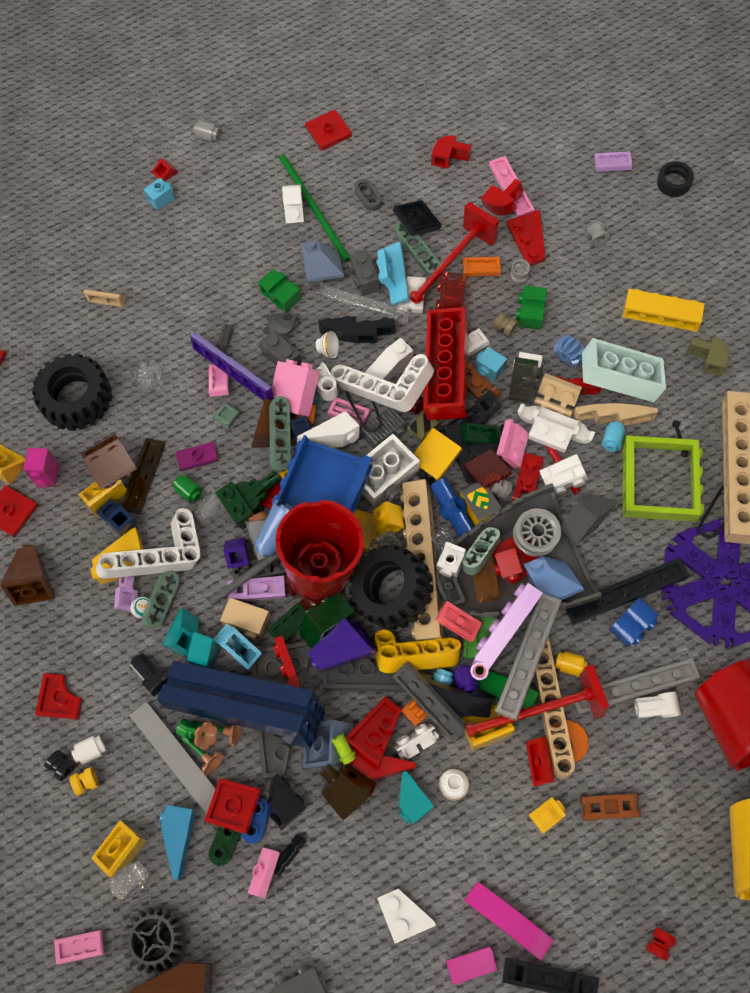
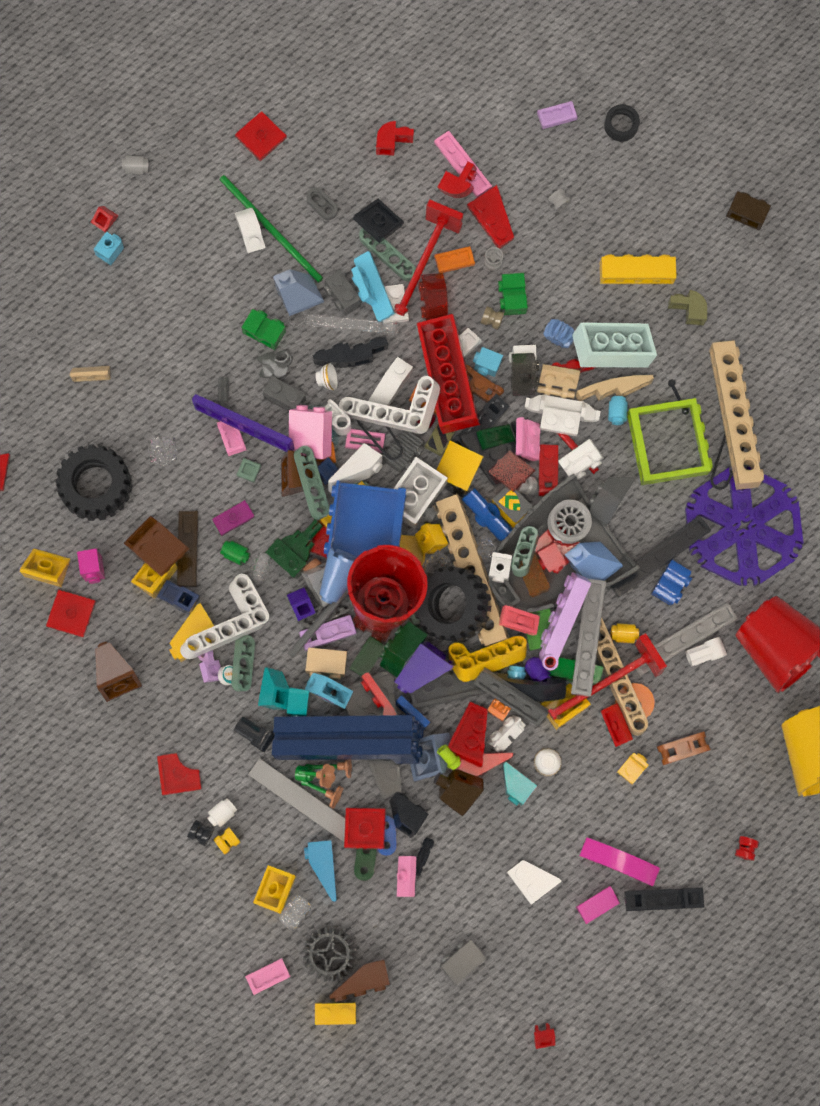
camera: 25 degrees left, 10 degrees up
(315, 686) = (408, 709): none -> blue tile

